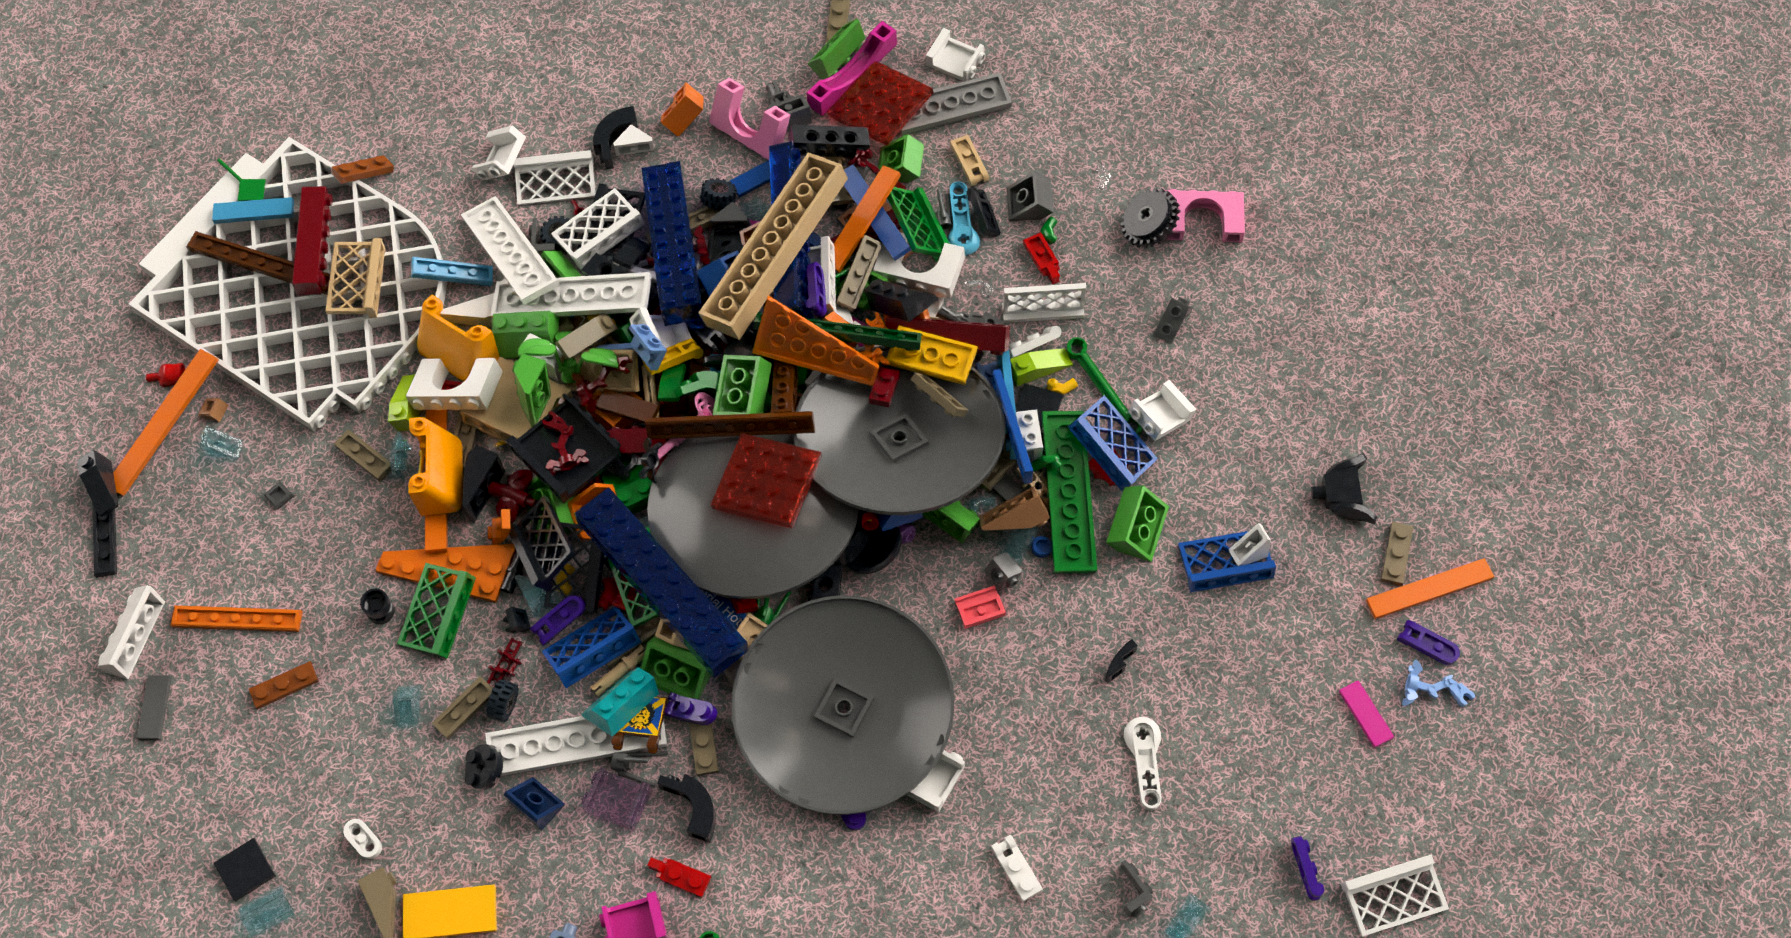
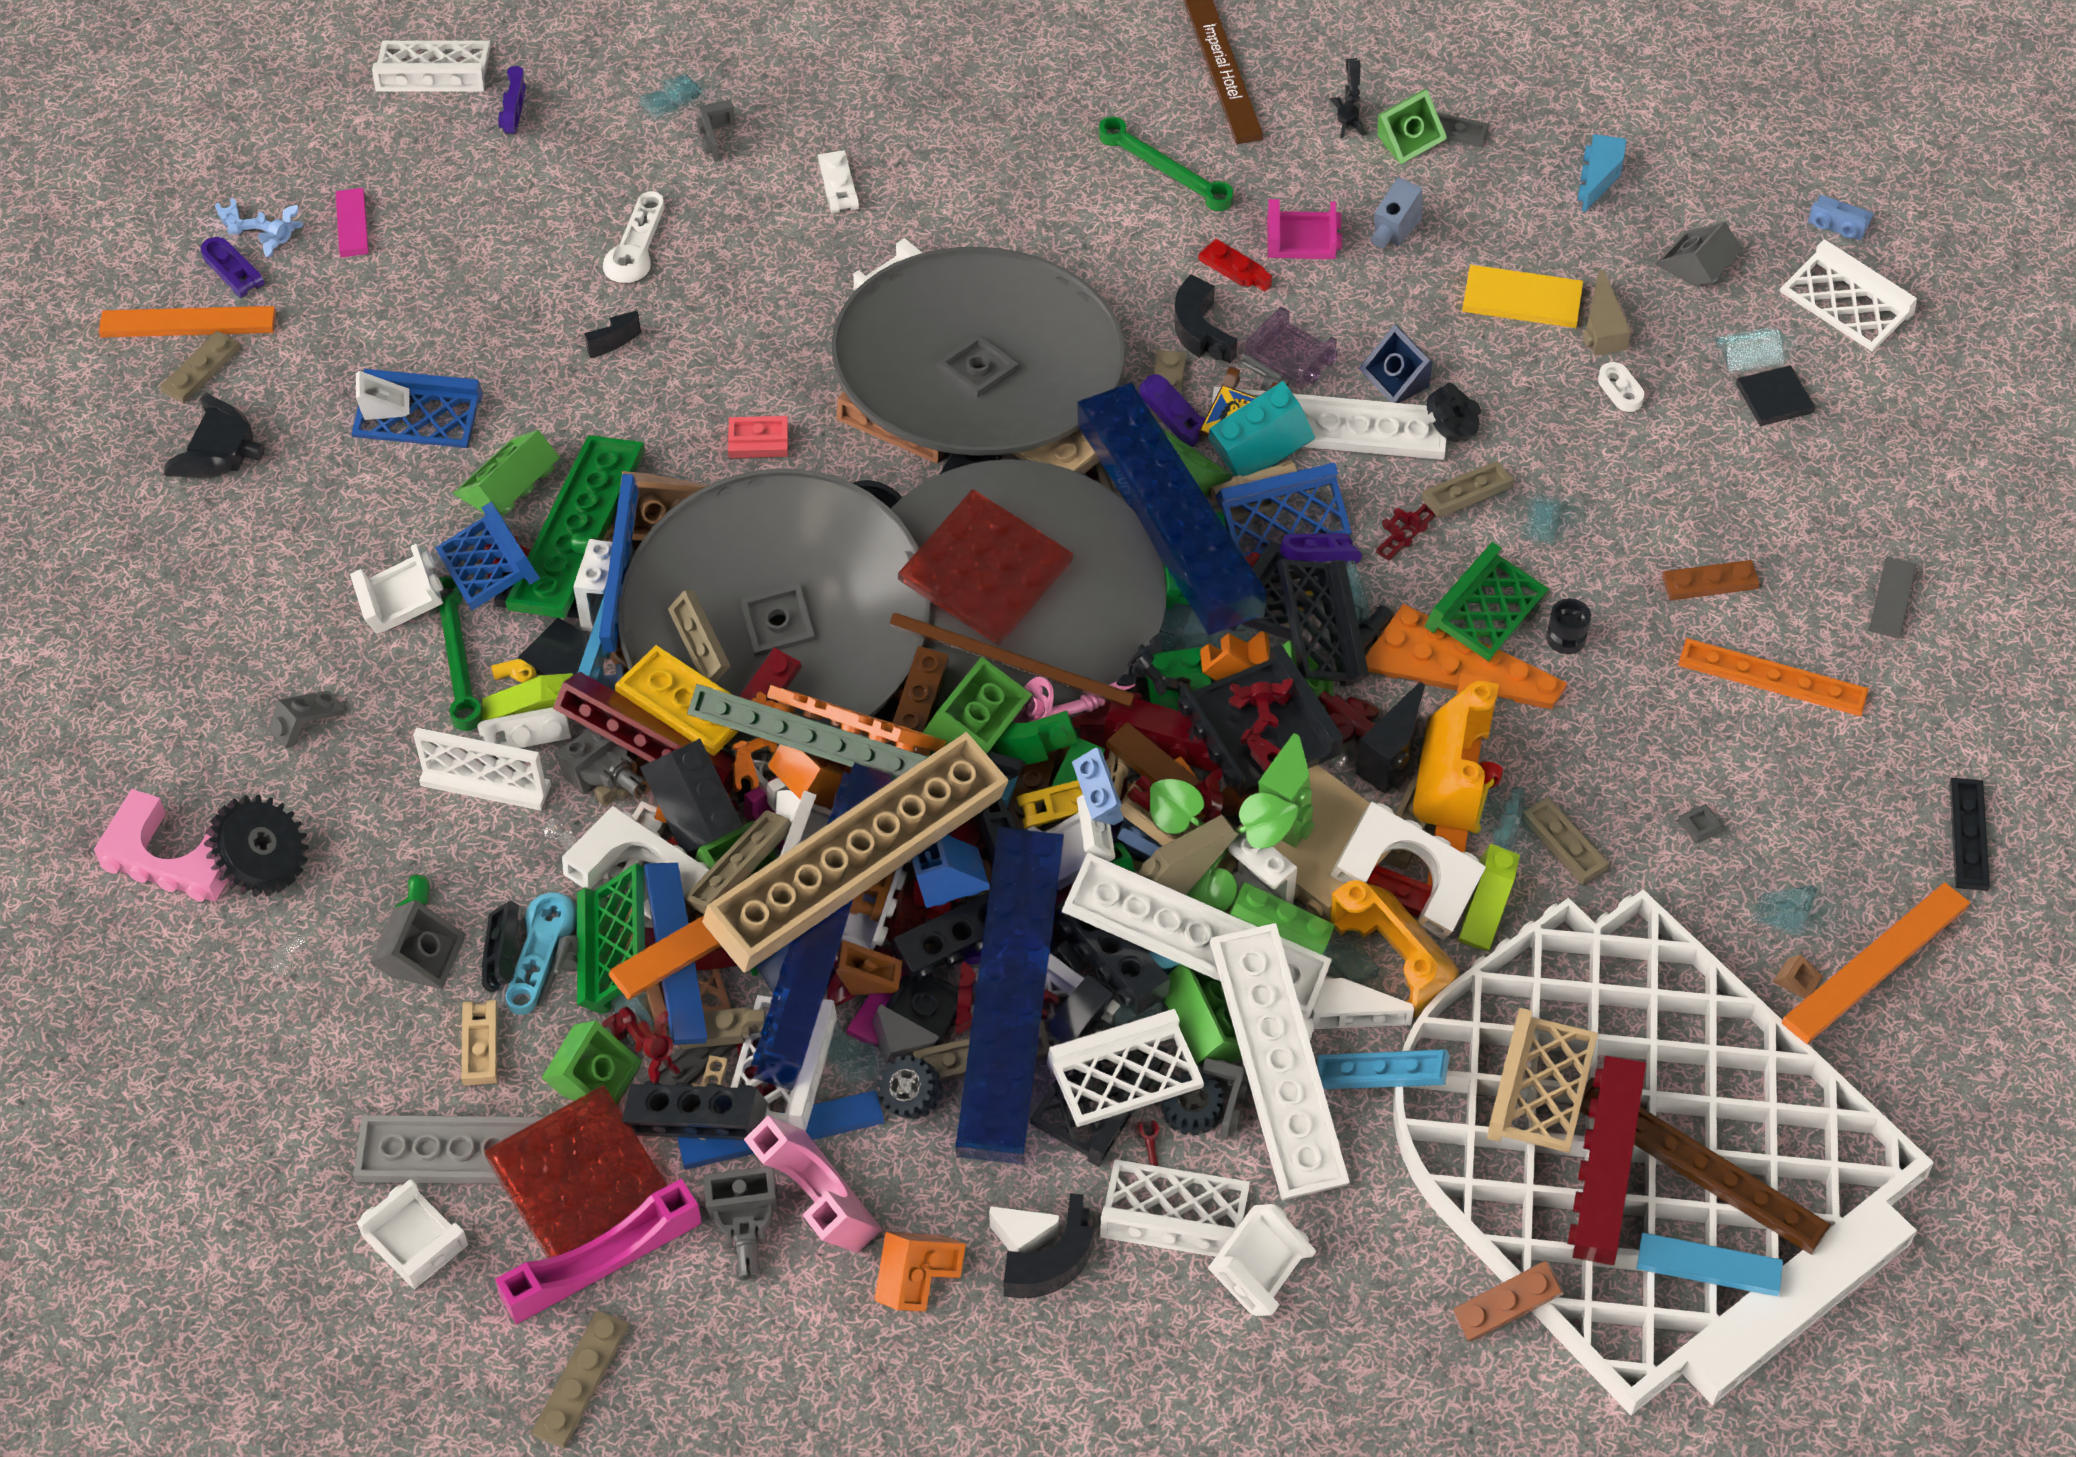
camera: 165 degrees left, 10 degrees down
(99, 481) = (1977, 894): black slope -> none
(131, 632) = (1925, 680): white slope -> none
(167, 375) = (1869, 1048): red piece -> none
(248, 188) = (1714, 1312): green piece -> none
(500, 527) = (1377, 675): orange slope -> none
(502, 700) = (1415, 473): black wheel -> none
(517, 620) = (1377, 570): black tile -> none
(816, 289) = (818, 802): dark purple plate -> none
(838, 49) = (611, 1282): bright green slope -> none
(1003, 571) = (710, 459): dark grey brick -> none
(1043, 257) = (444, 856): red hinge -> none

